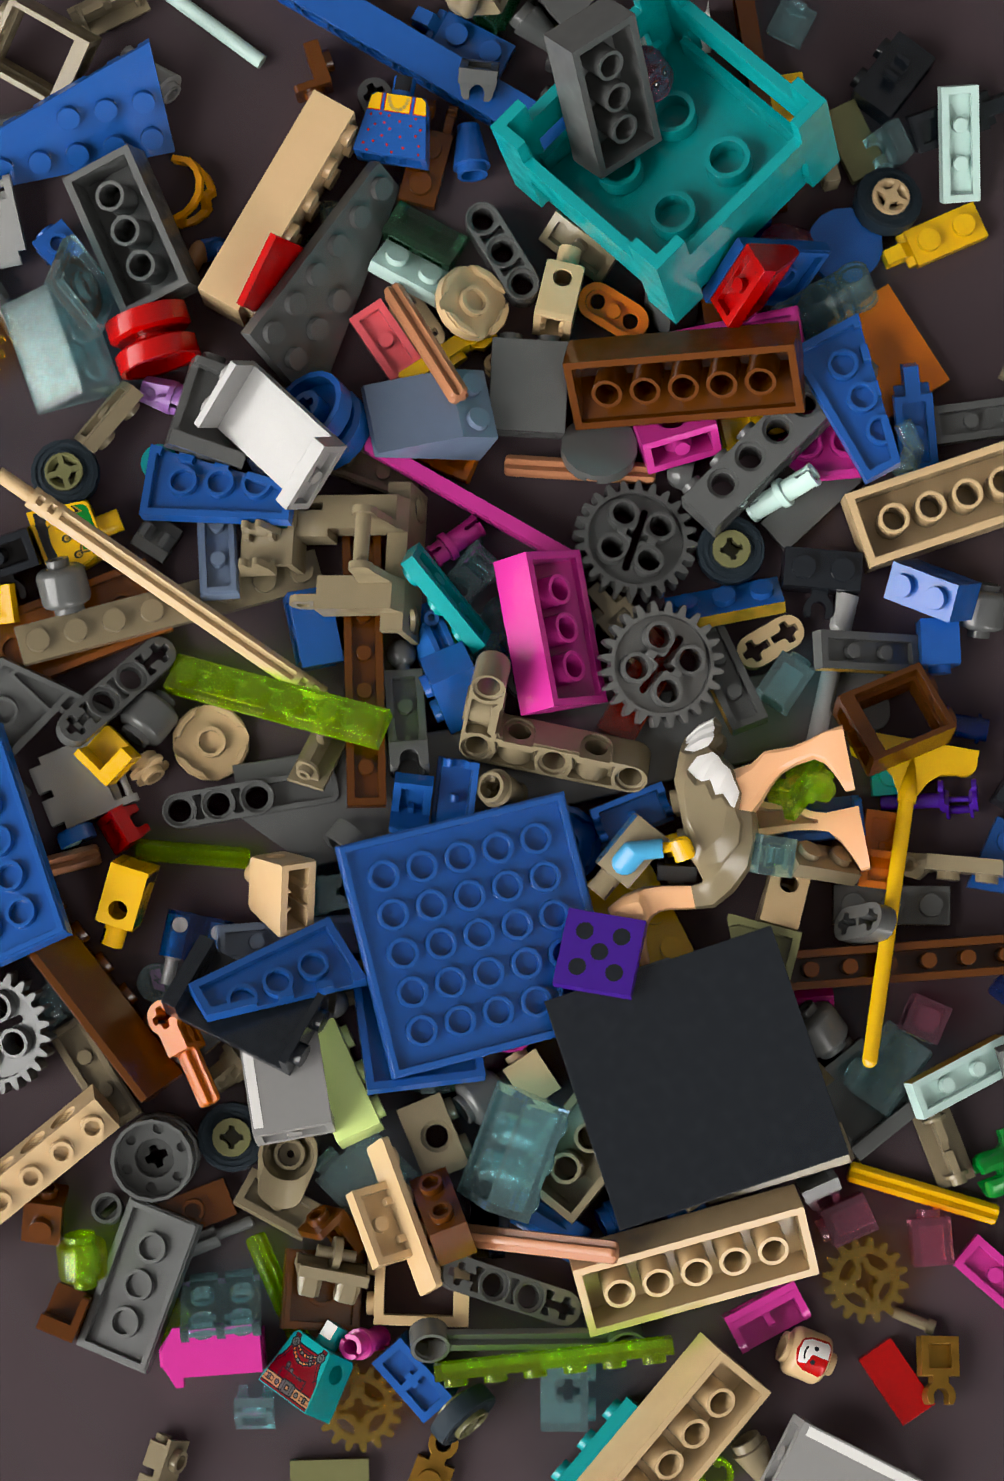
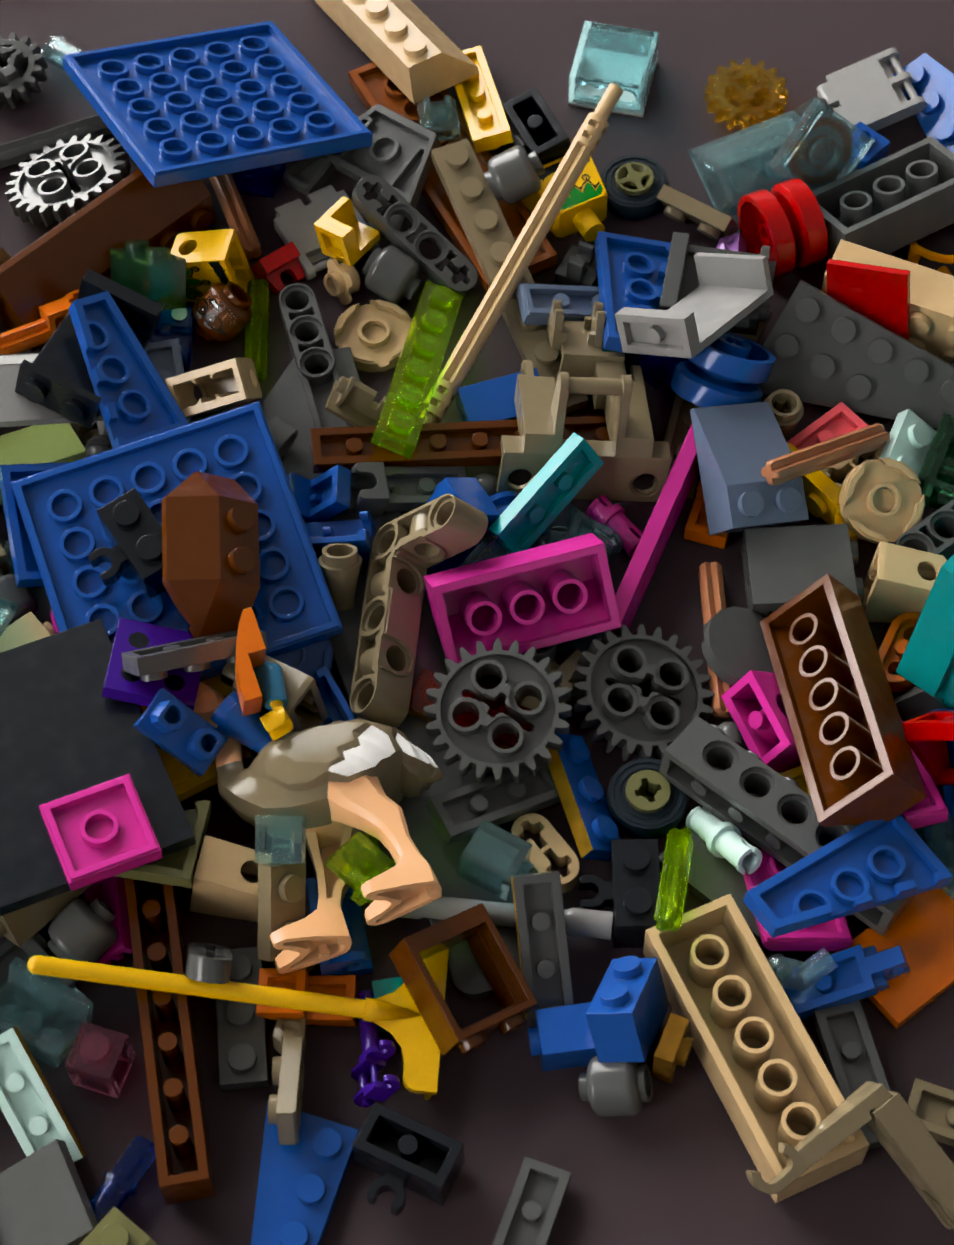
camera: 85 degrees right, 25 degrees down
(76, 835) = (267, 229): blue tile -> none
(143, 951) = (150, 272): none -> clear green brick
(181, 883) = (222, 312): none -> reddish brown head
(361, 367) = (787, 410): none -> dark tan cone
(483, 962) = (135, 541): none -> black brick
(497, 895) = (210, 552): none -> reddish brown wedge
(599, 916) = (189, 654): none -> dark grey plate
(621, 868) = (249, 654): none -> orange slope
(660, 882) = (246, 729): none -> blue cone
(671, 931) = (181, 732): none -> blue hips
(765, 1002) = (100, 832): none -> dark pink tile
(824, 537) = (674, 880): none -> clear neon green axle
(967, 560) = (672, 1048): none -> pearl gold plate
(972, 727) = (467, 1081): clear blue pin -> none

